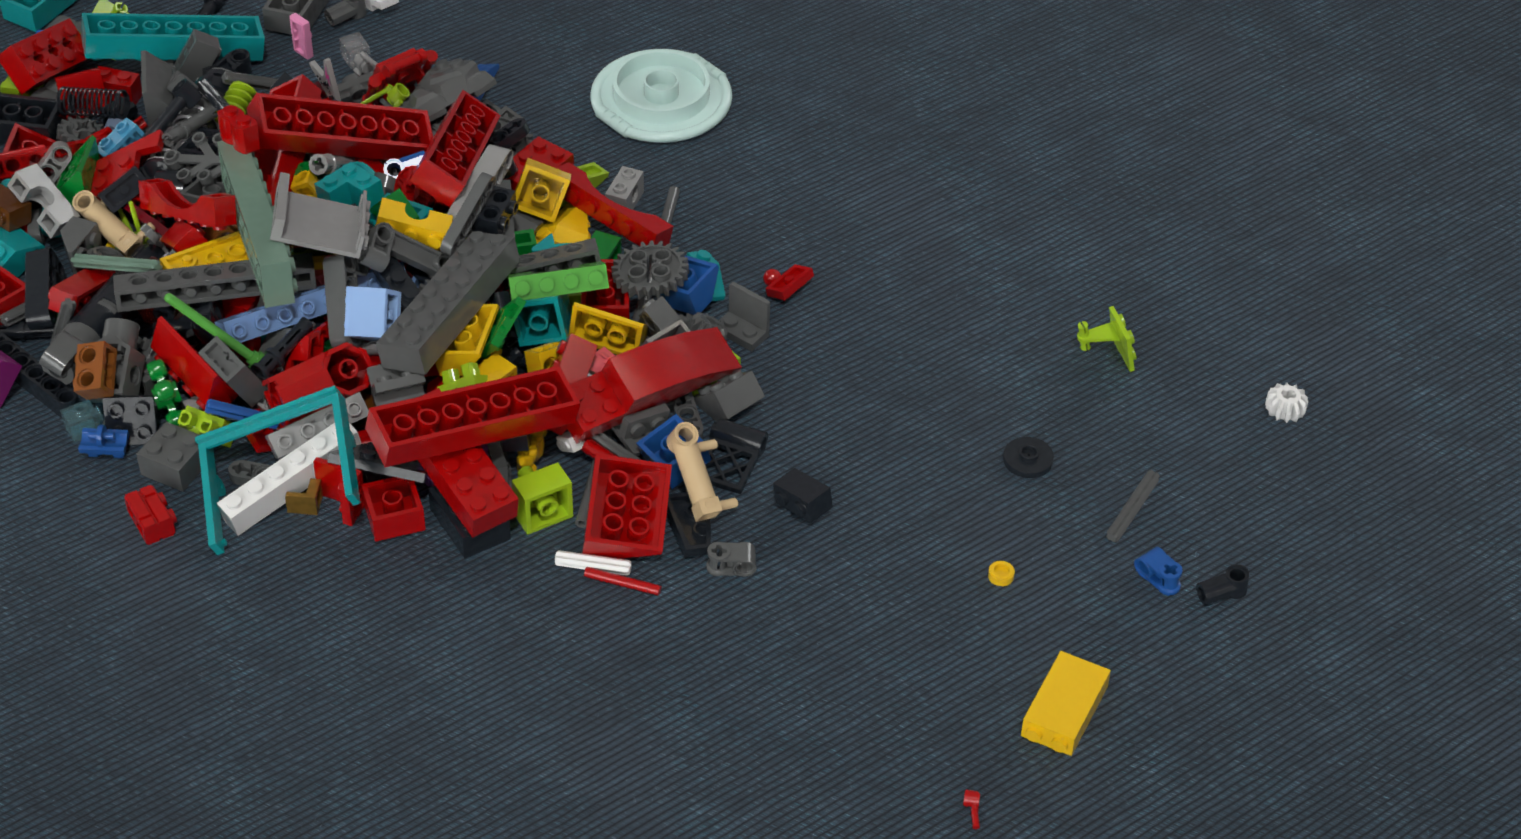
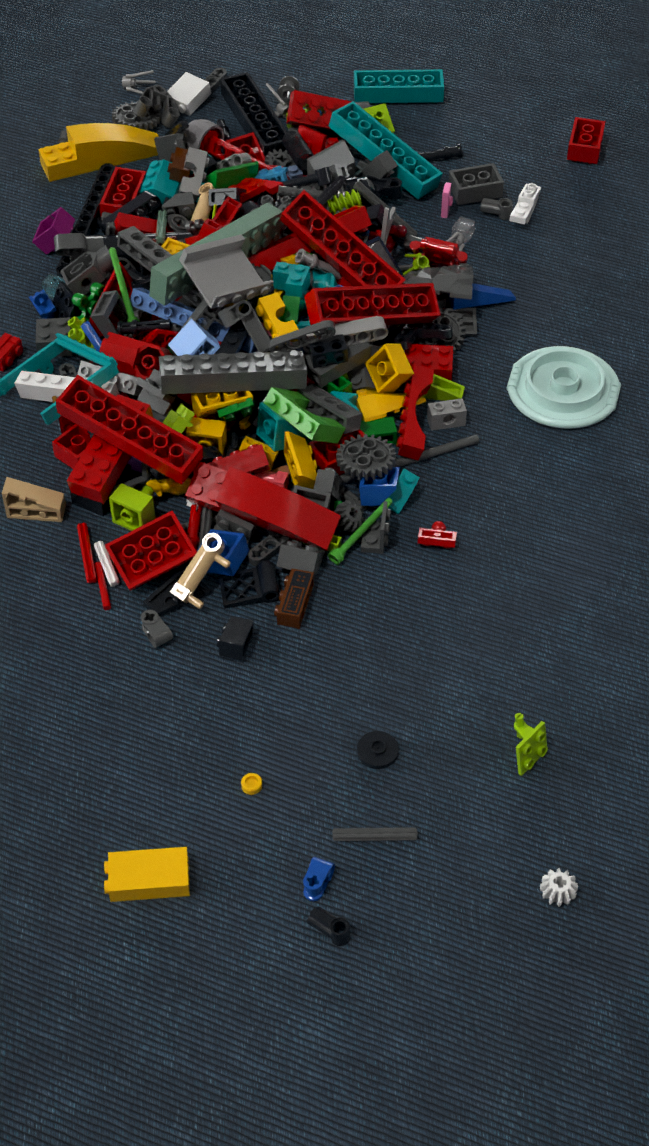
camera: 60 degrees right, 5 degrees up
(95, 370) = (68, 263): dark orange brick -> none
(238, 129) = (276, 202): red brick -> none
(444, 586) = (32, 501): none -> tan wedge
(560, 574) = (86, 553): none -> red axle
(746, 362) = (337, 555): none -> bright green piece
(784, 426) = (294, 598): none -> reddish brown brick
(971, 799) = (30, 860): red hand -> none

